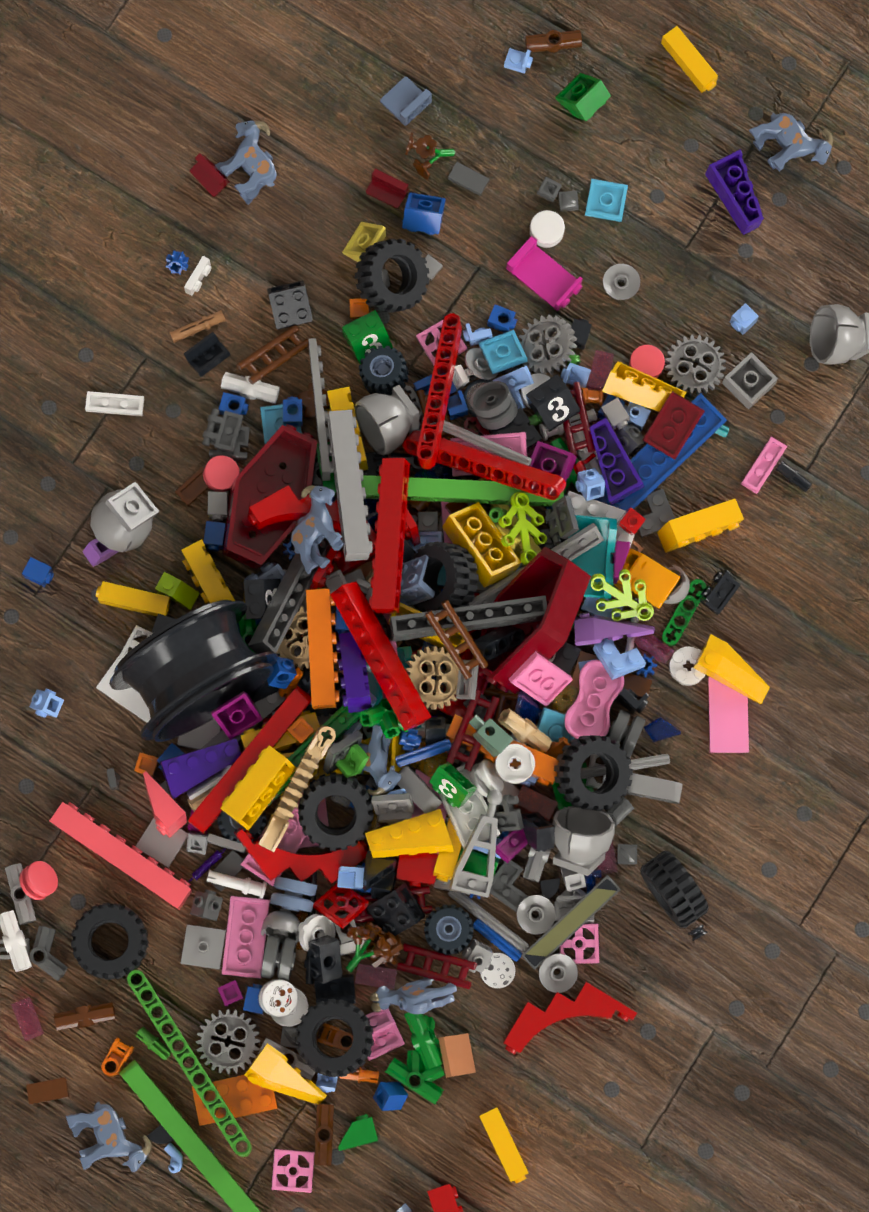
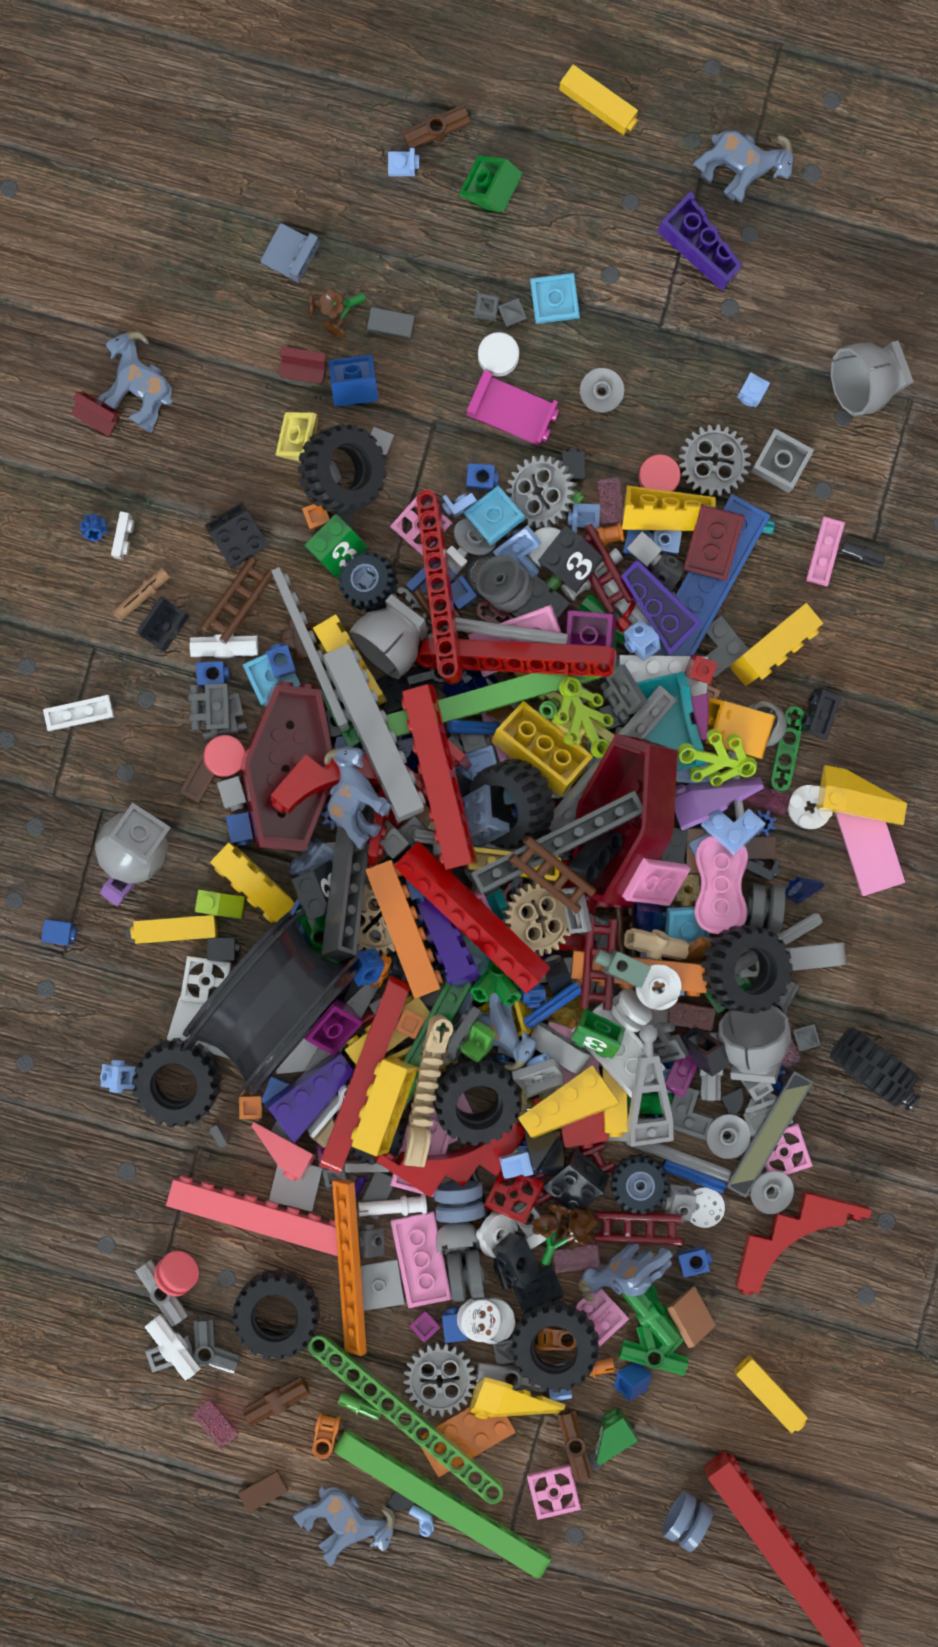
camera: 15 degrees left, 10 degrees up
(68, 715) = (156, 1102): none -> black tyre
(184, 919) = (349, 1266): none -> orange plate
(429, 509) = (472, 727): none -> blue axle
(466, 1015) = (684, 1260): none -> blue brick

